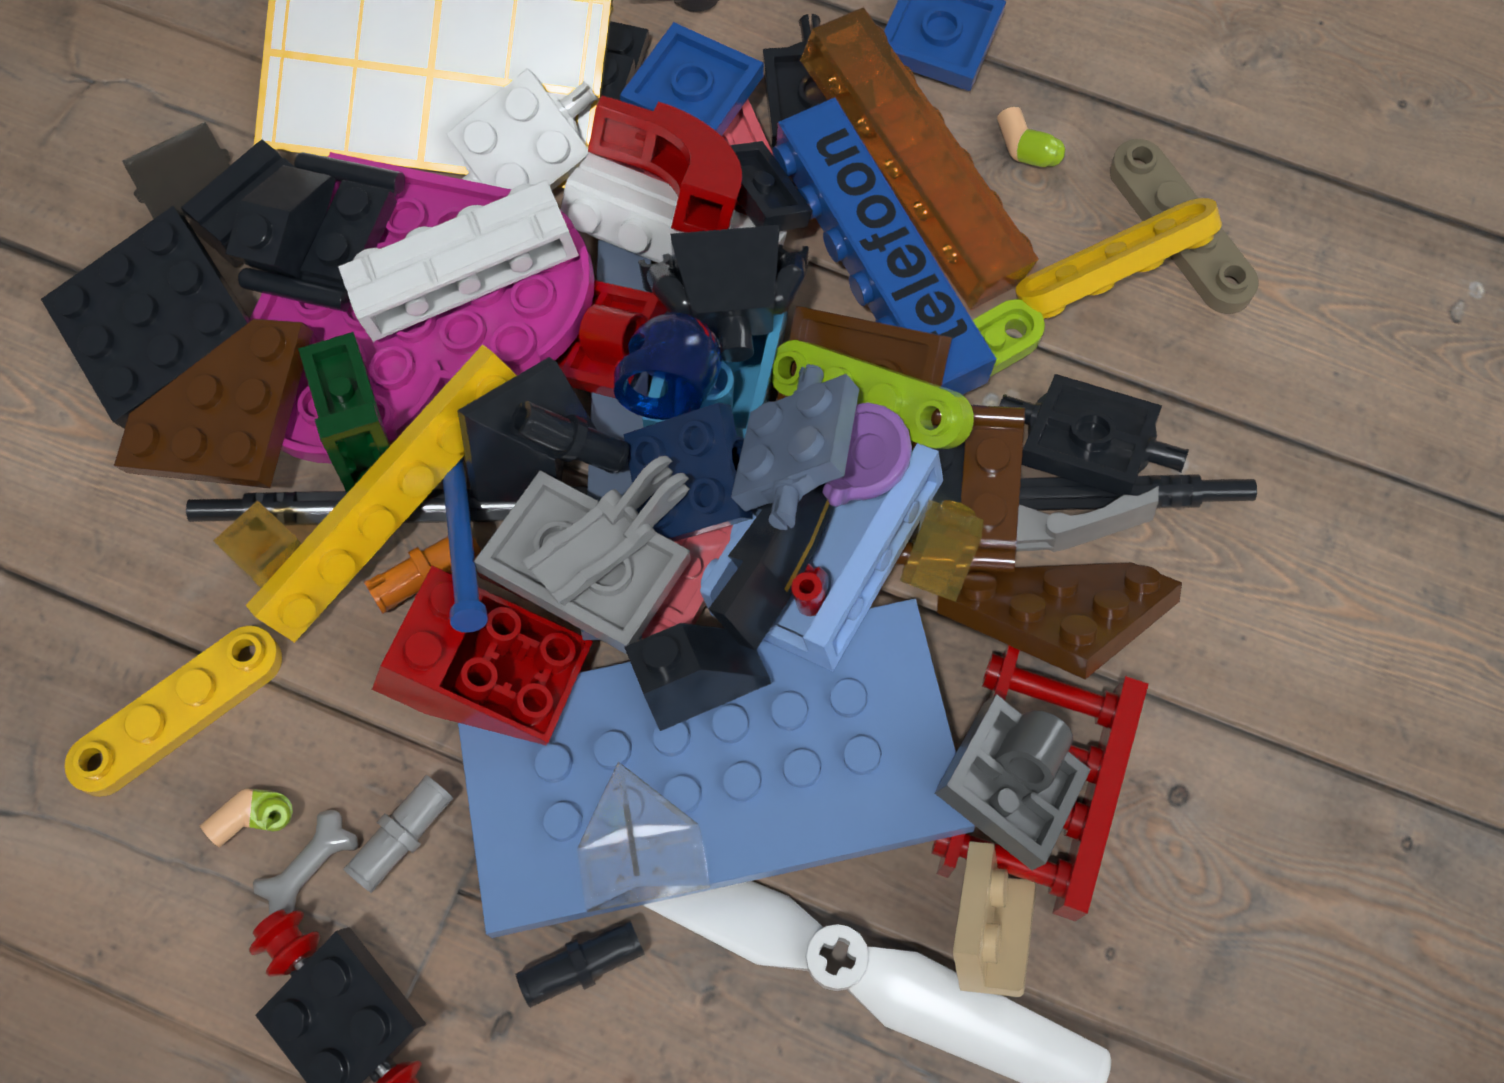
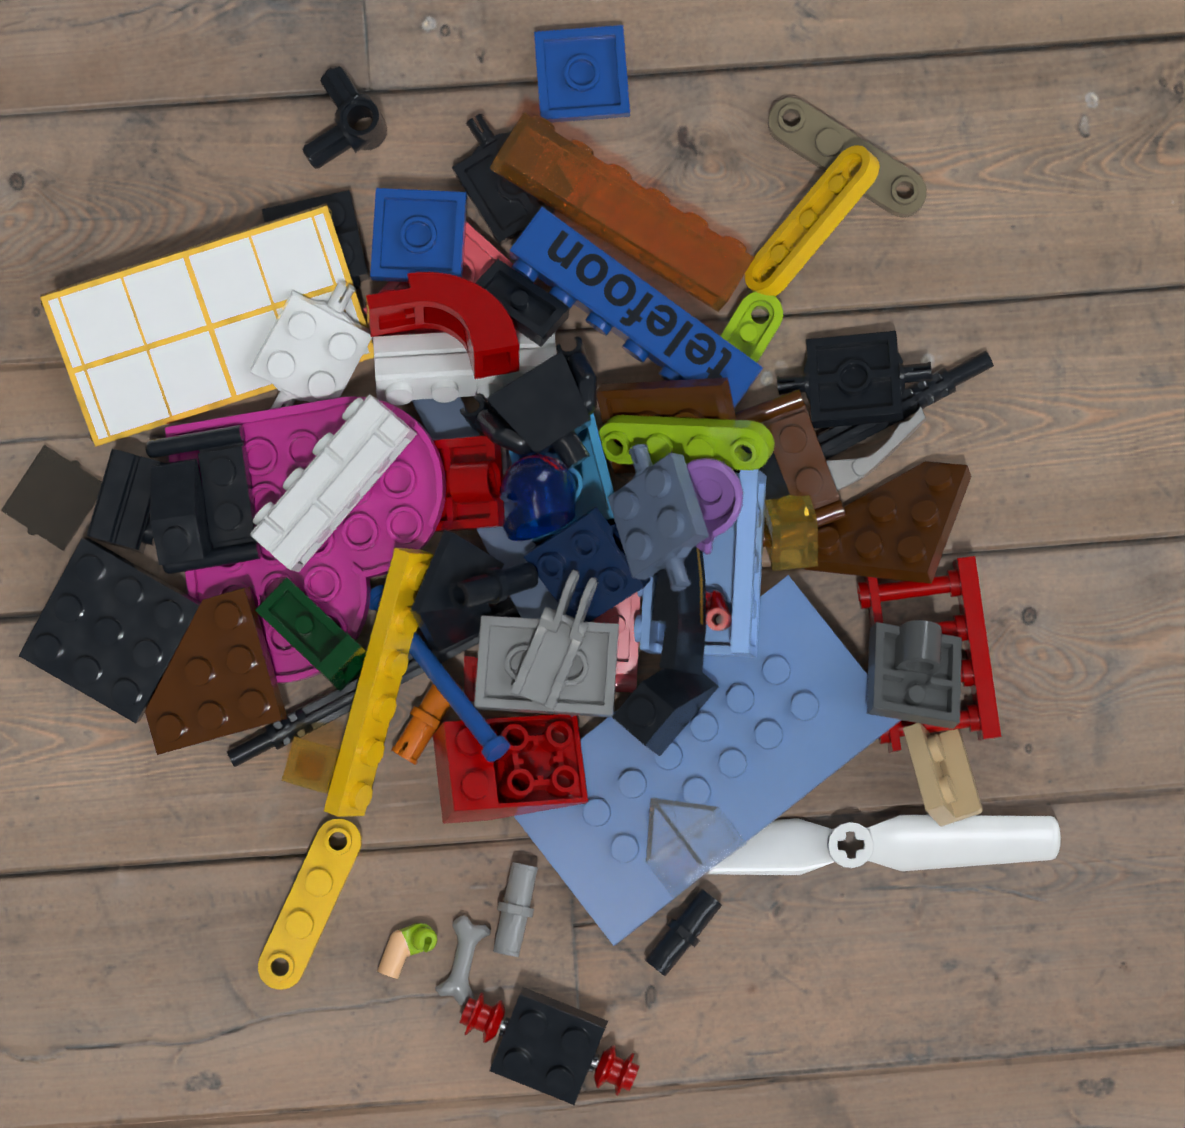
camera: 25 degrees left, 15 degrees up
(1028, 144) = (697, 146): lime arm -> none

